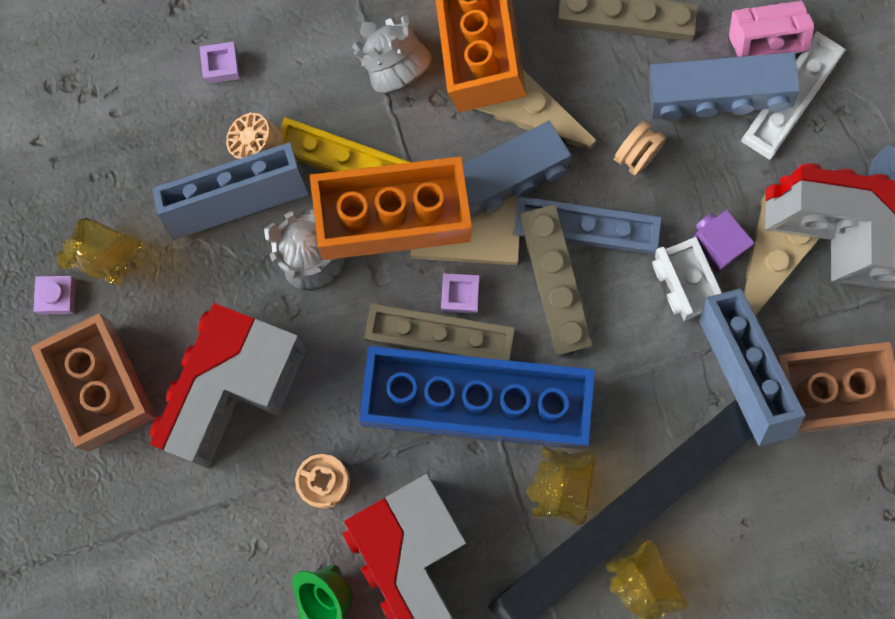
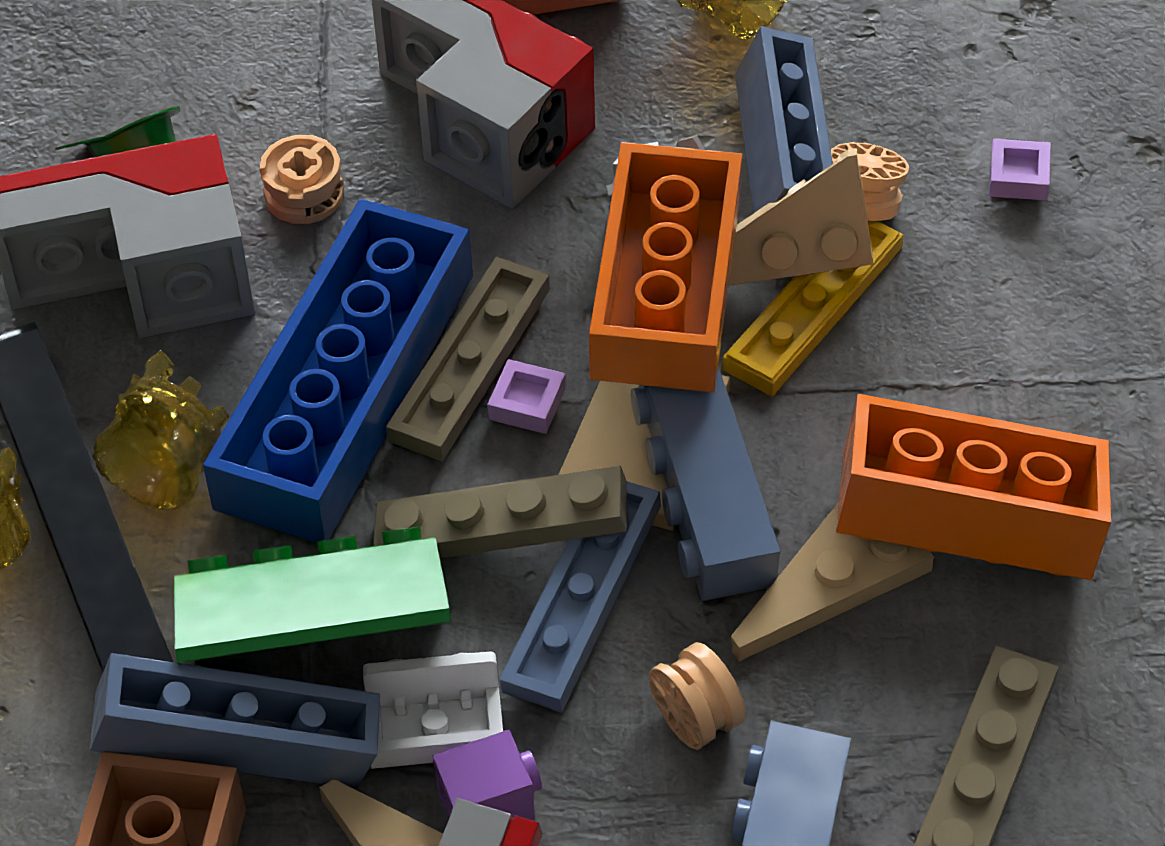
camera: 105 degrees right, 25 degrees down
(312, 145) = (809, 230): none -> tan wing
(391, 54) = (978, 374): light grey hair -> none
(667, 349) = (308, 597): none -> slope

